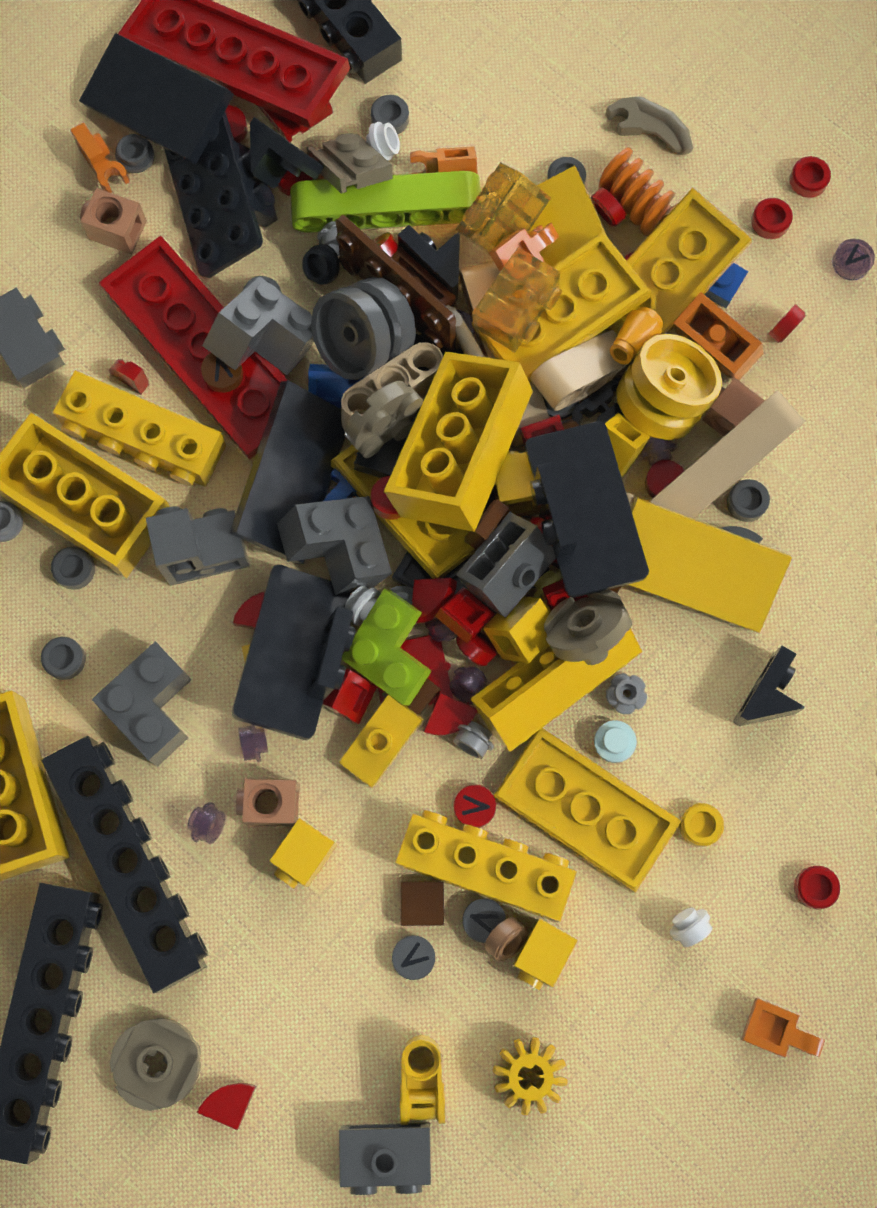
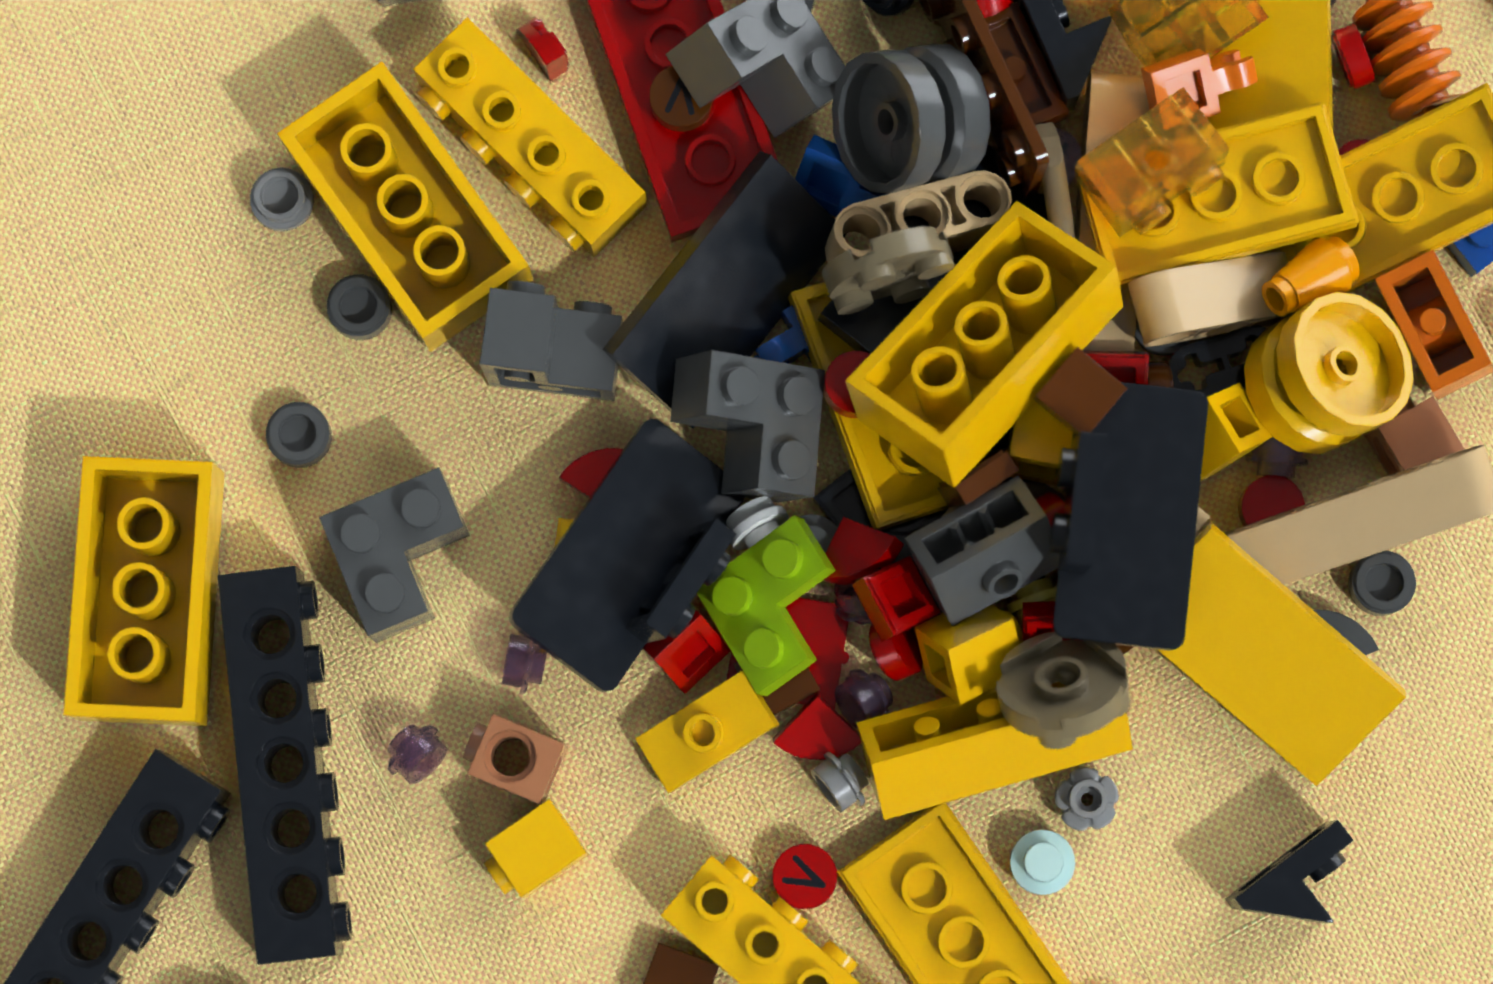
camera: 20 degrees right, 5 degrees up
(527, 446) = (1080, 393): none -> reddish brown tile

